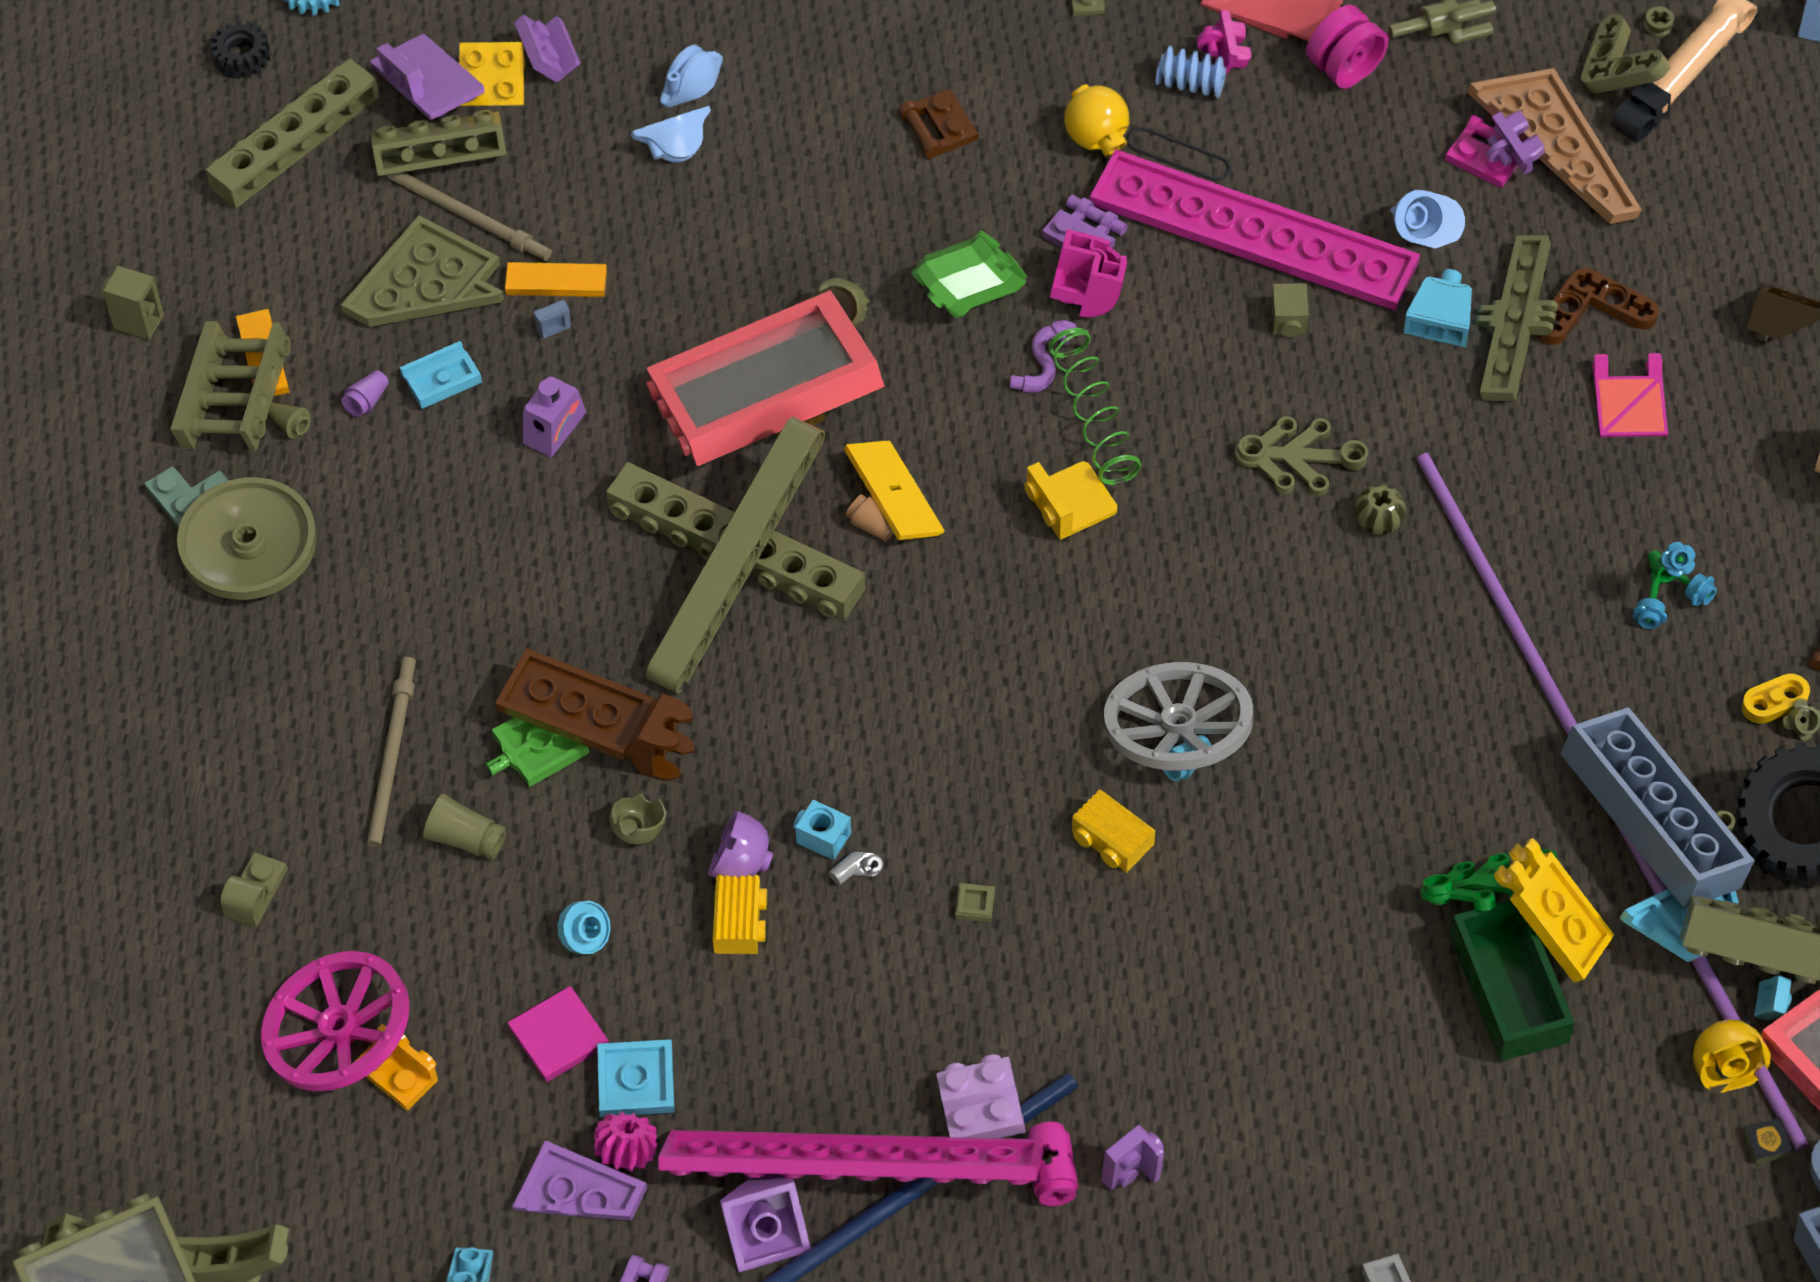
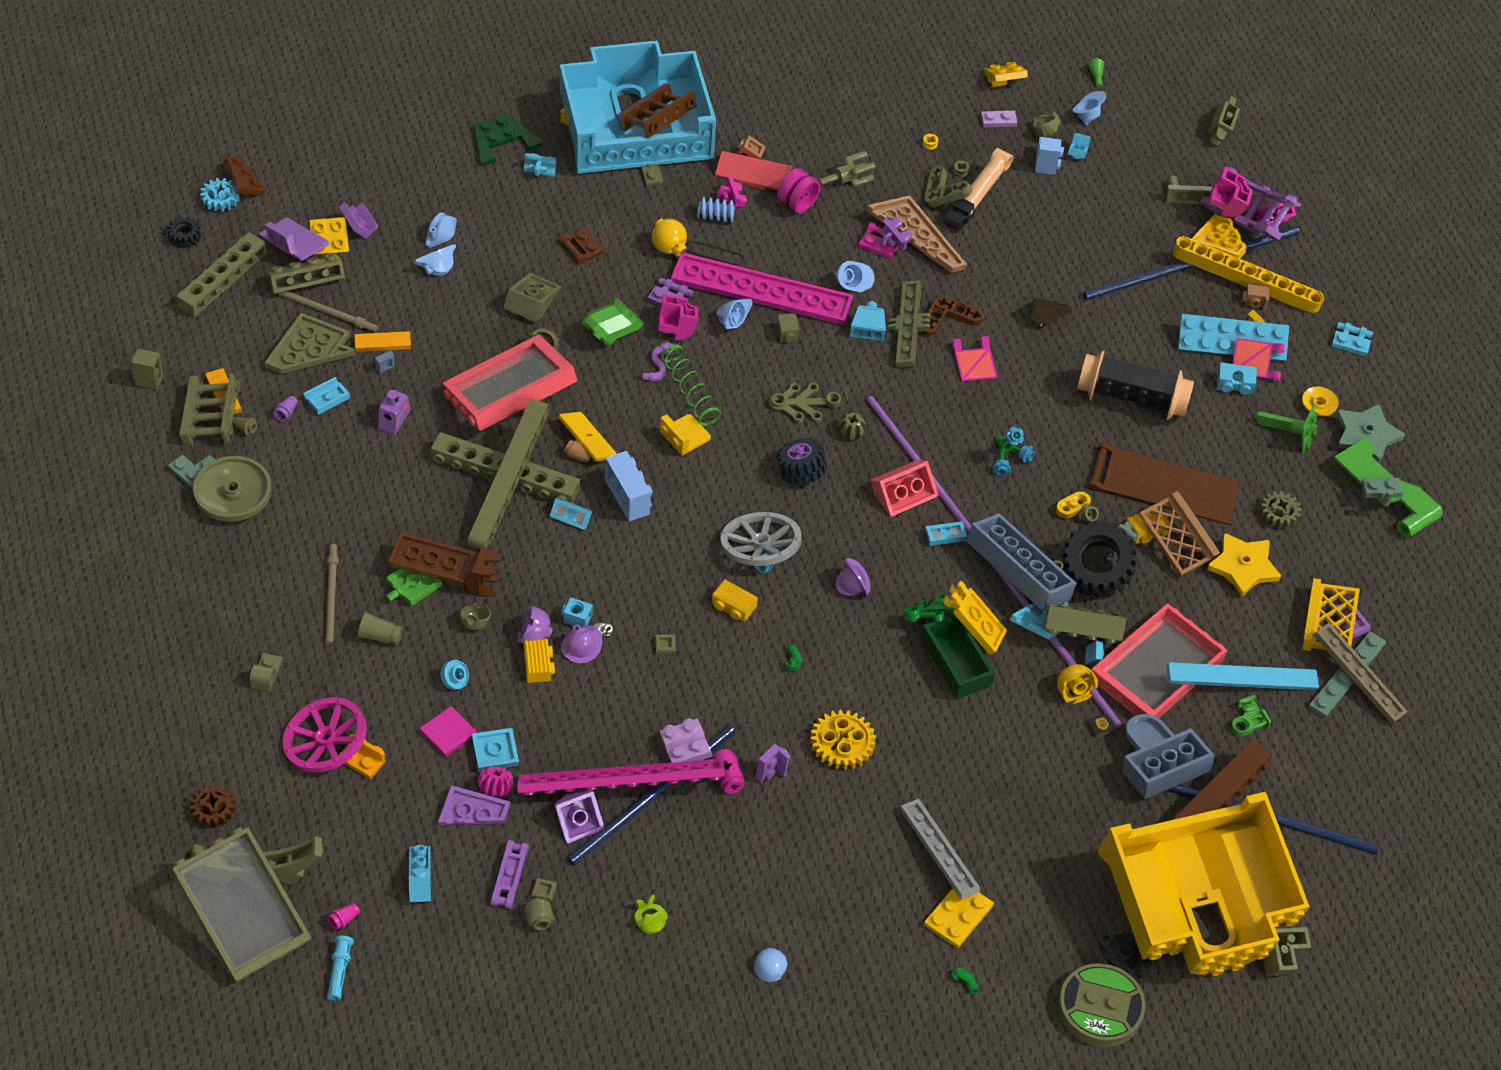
camera: 15 degrees left, 5 degrees down
(136, 1137) = (223, 805): none -> reddish brown gear
(823, 889) = (582, 644): none -> medium lavender helmet
(832, 214) = (531, 297): none -> olive slope
(840, 636) = (570, 513): none -> medium azure piece
(950, 593) = (628, 486): none -> light blue brick
(1194, 273) = (734, 312): none -> light blue hat
(1210, 956) = (795, 660): none -> green arm
(1276, 572) = (802, 461): none -> black wheel
(1297, 1144) = (855, 749): none -> yellow gear
(1339, 809) = (853, 579): none -> medium lavender helmet
(1462, 637) = (905, 487): none -> coral slope
(1526, 734) = (945, 533): none -> medium azure piece

